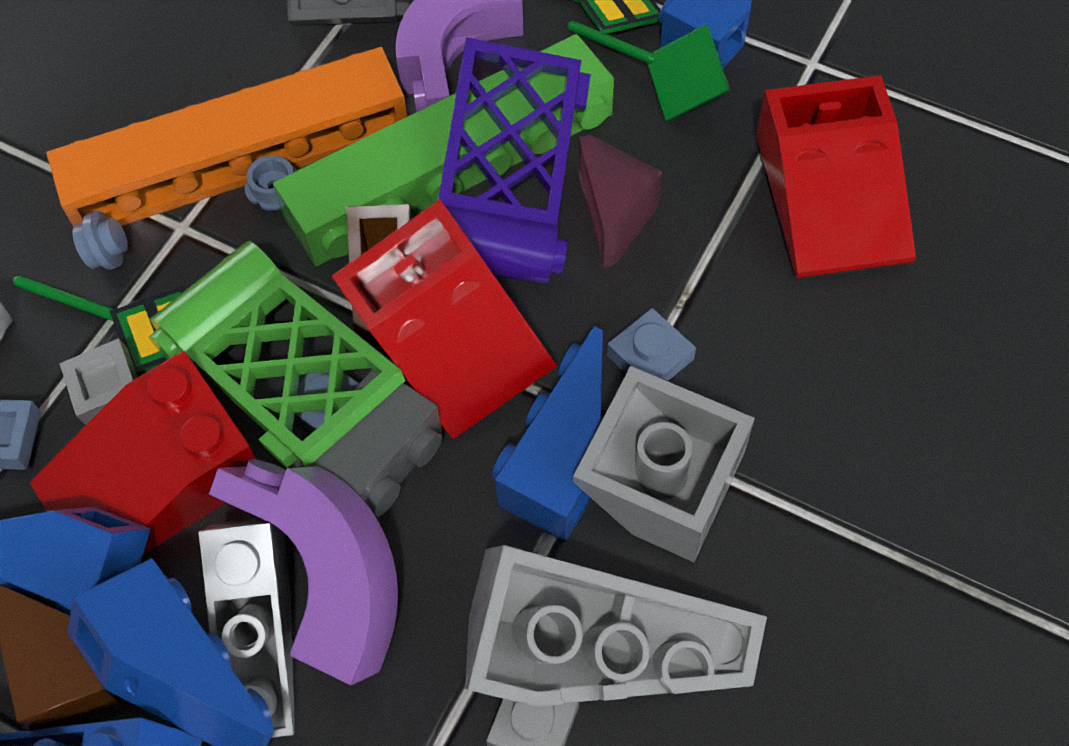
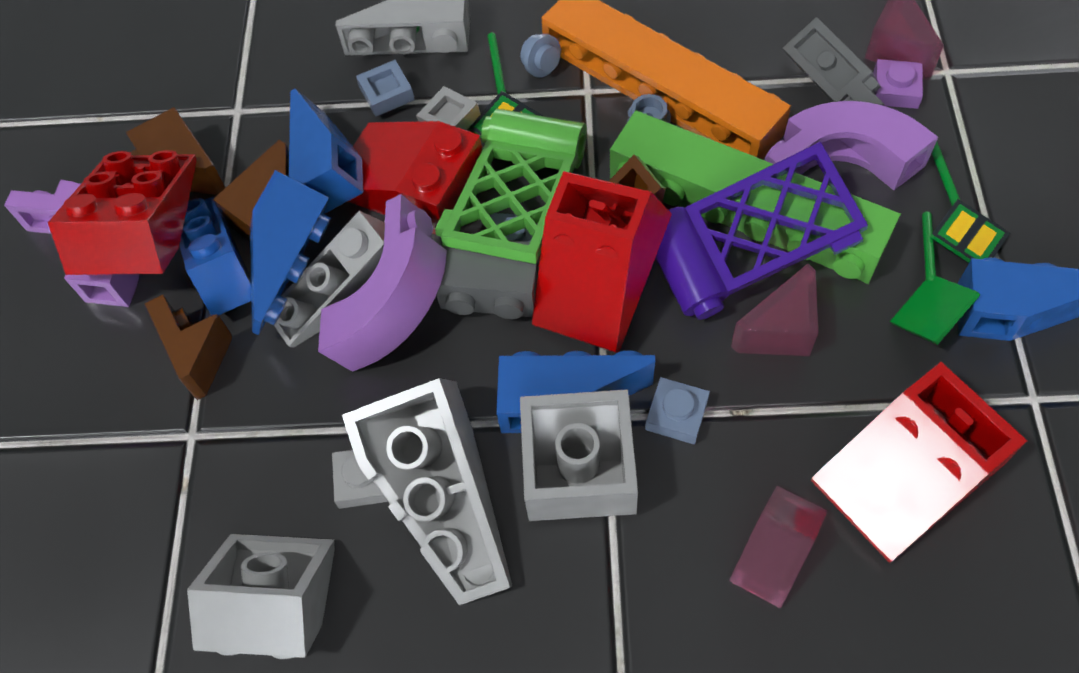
camera: 65 degrees right, 0 degrees up
(852, 339) = (778, 546): none -> clear pink slope

